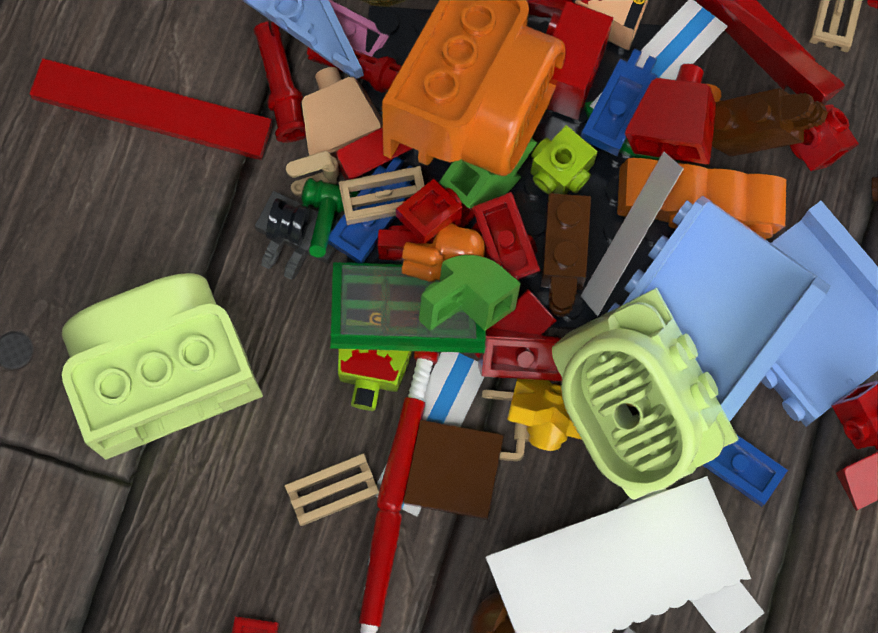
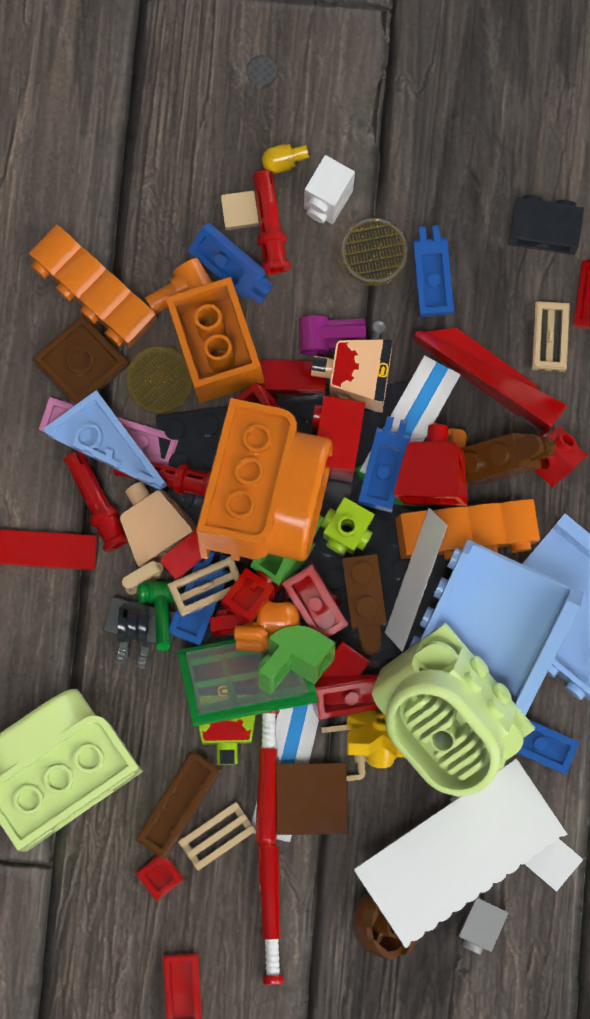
camera: 15 degrees left, 5 degrees up
(254, 522) = (159, 877): none -> red tile
(294, 443) = (178, 805): none -> reddish brown plate

